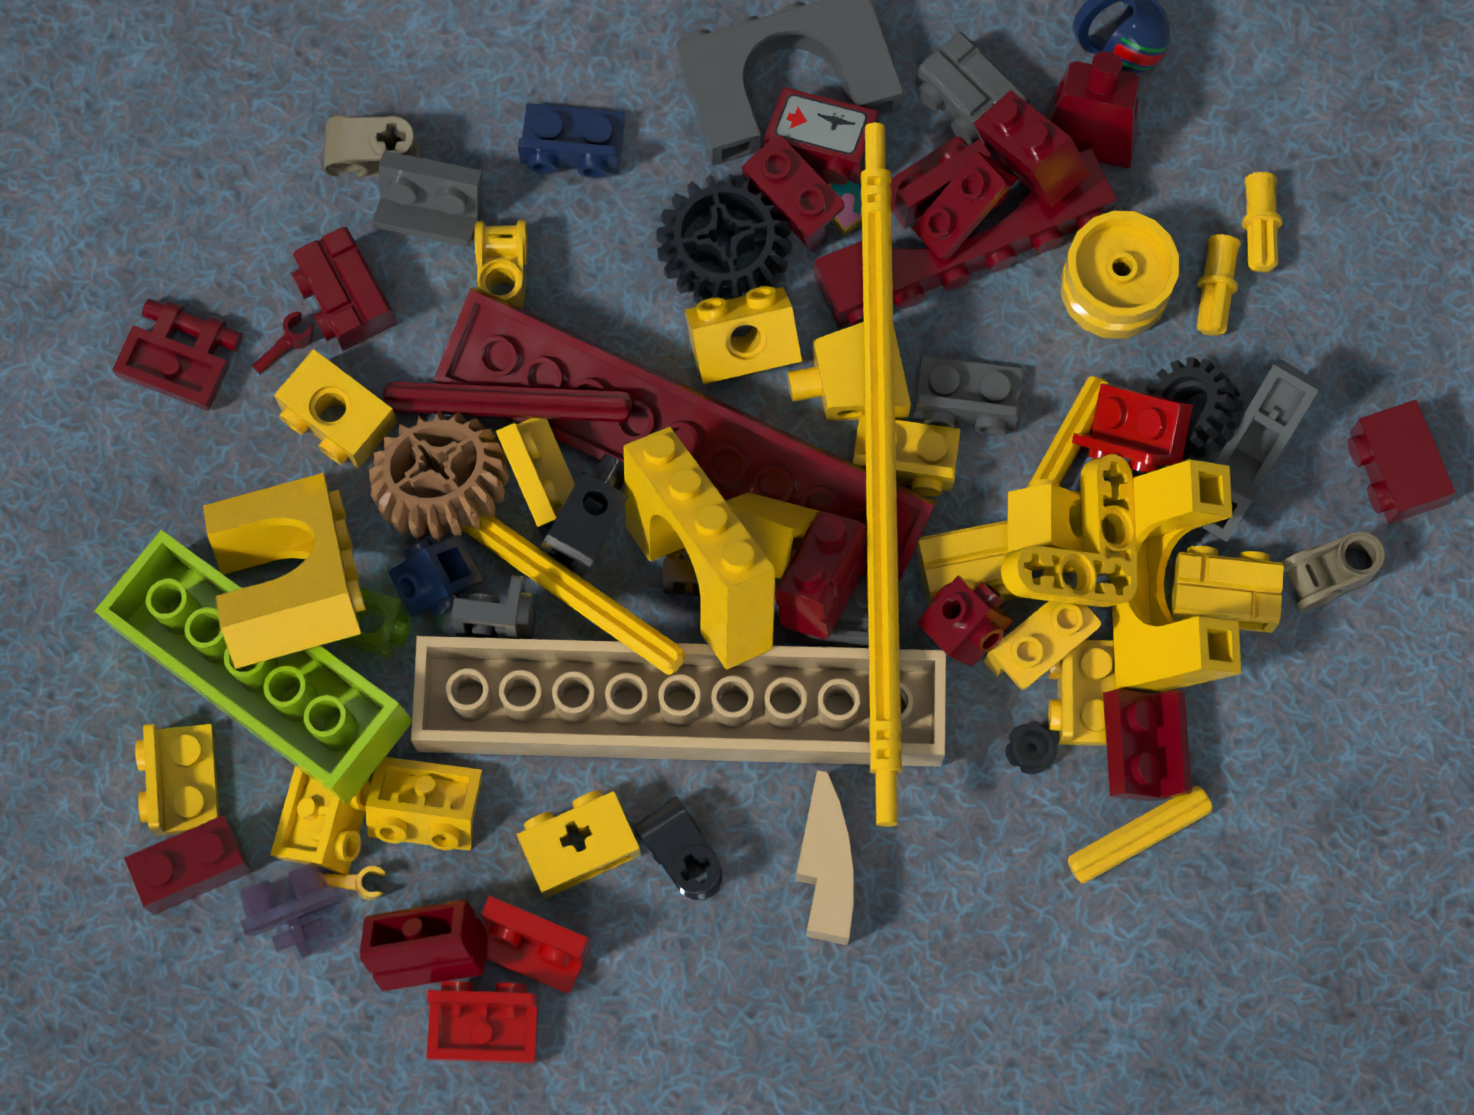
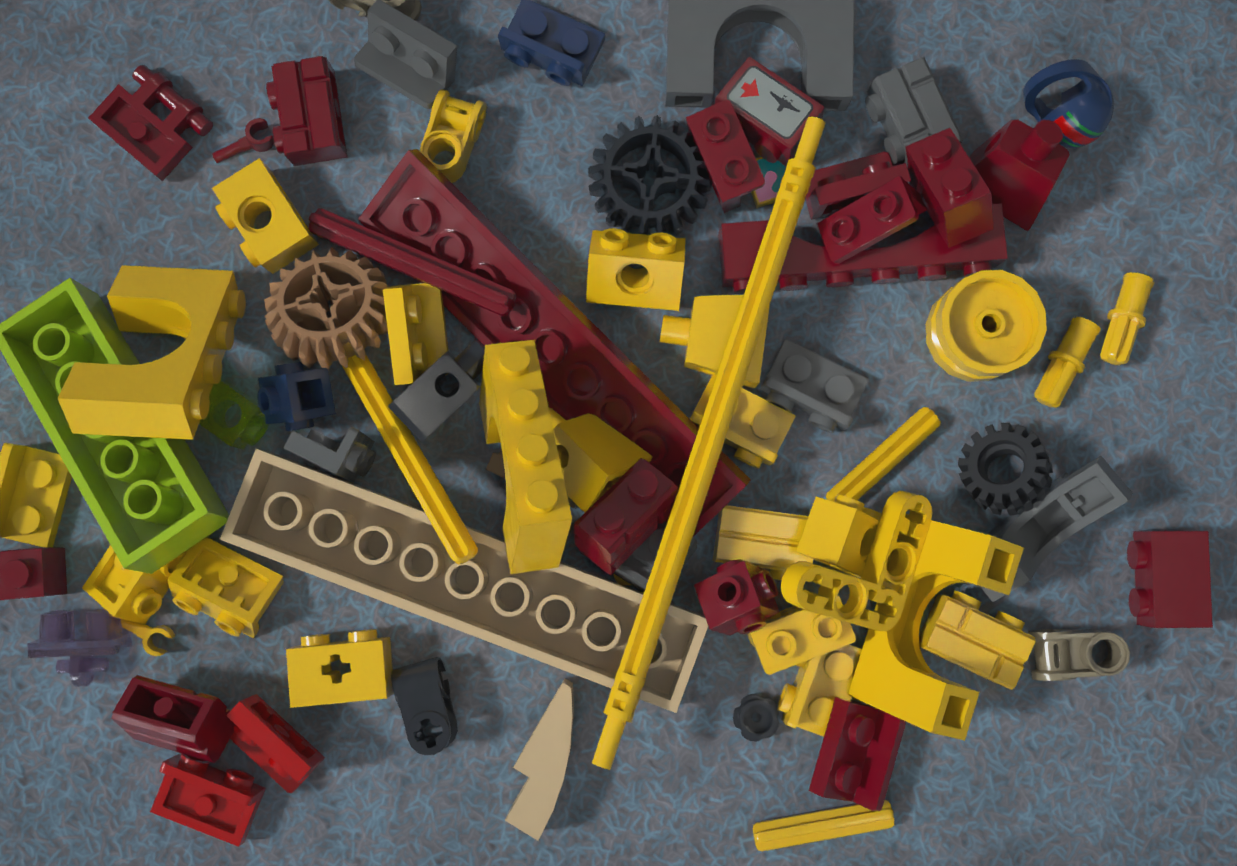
camera: 20 degrees right, 10 degrees up
(1137, 427) = (950, 474): red bracket -> none

